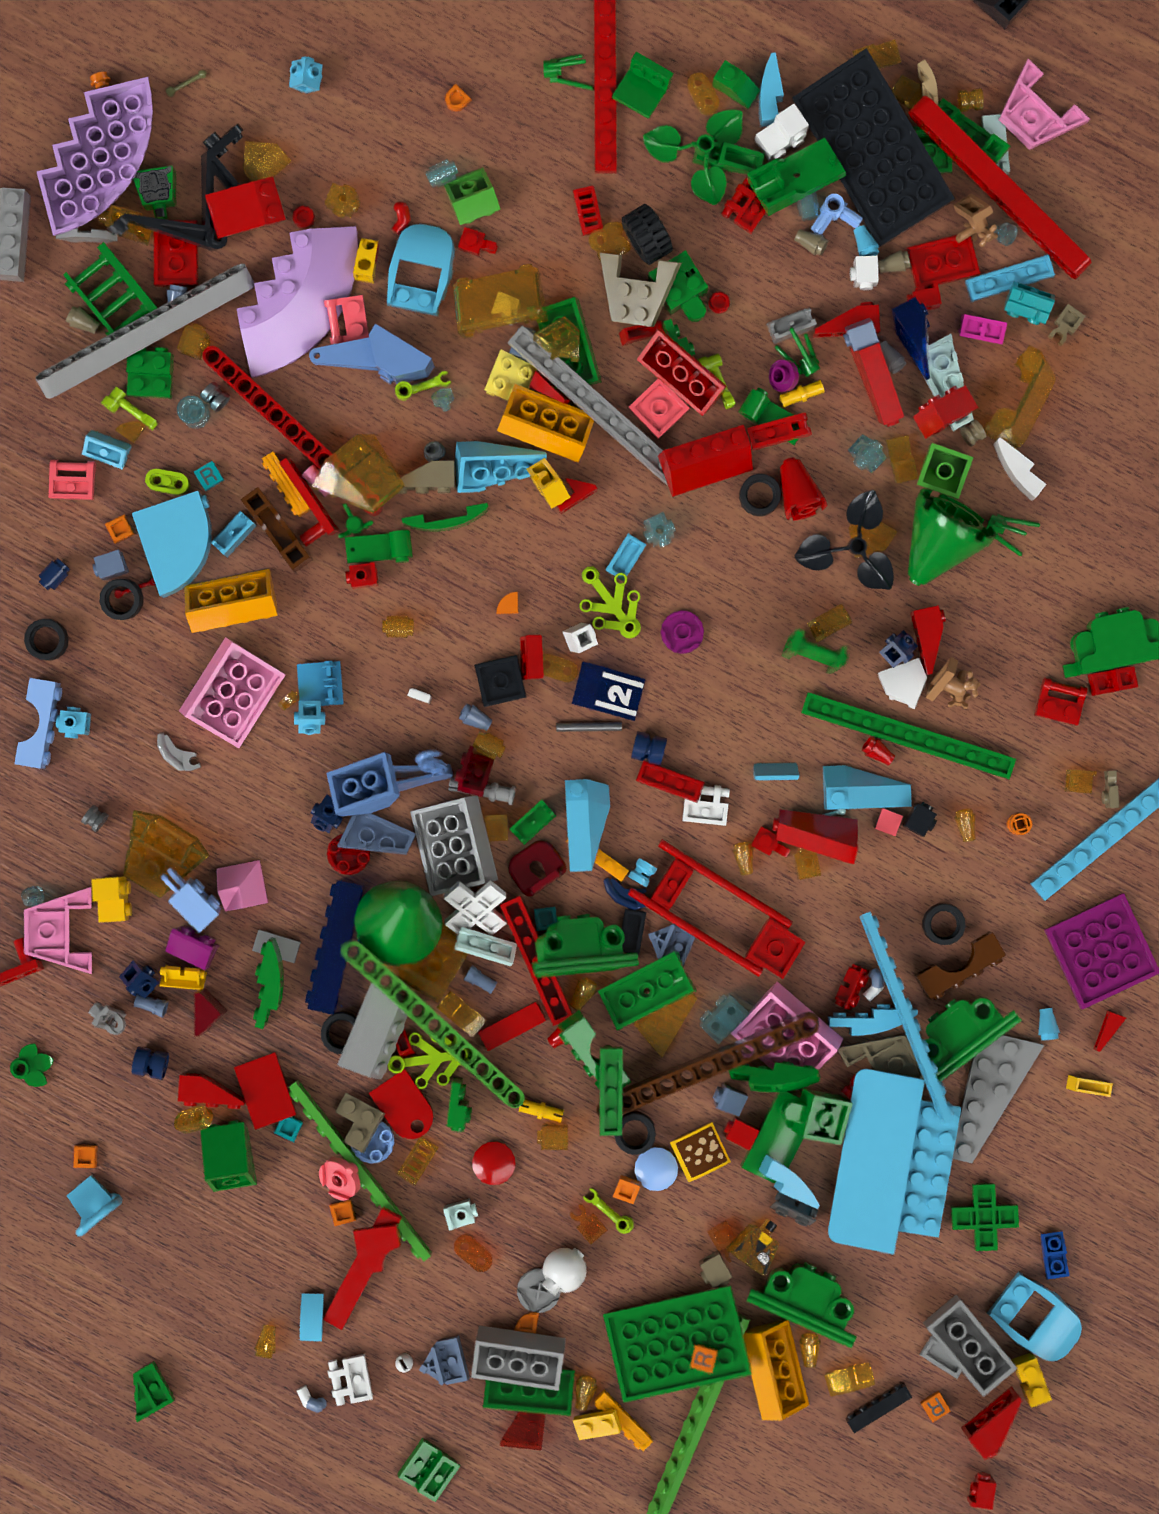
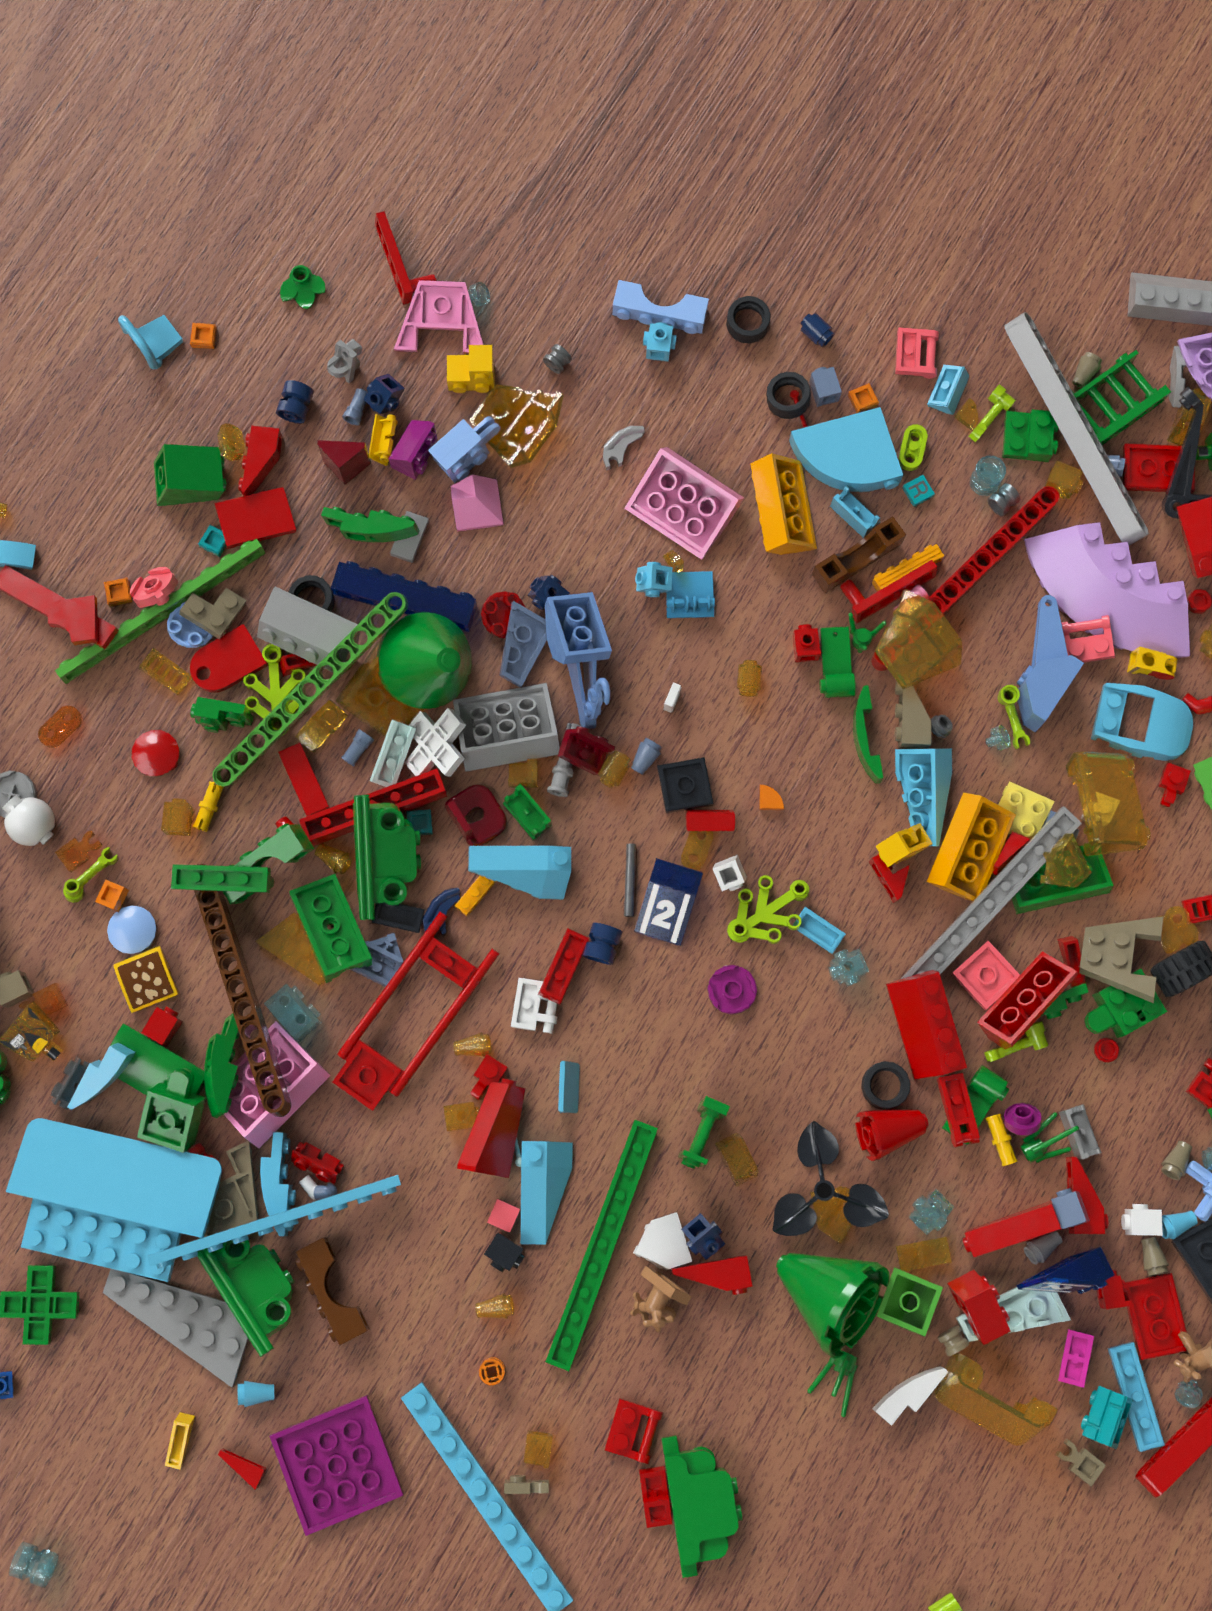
camera: 90 degrees right, 10 degrees down
(465, 1206) = (100, 704): light aqua brick -> none
(640, 1149) = (183, 923): black tyre -> none
(646, 868) = (463, 930): medium azure wheel -> none
(729, 1099) = (200, 1013): sand blue slope -> none
(877, 750) = (586, 1206): red cone -> none
(959, 931) = (362, 1274): black tyre -> none

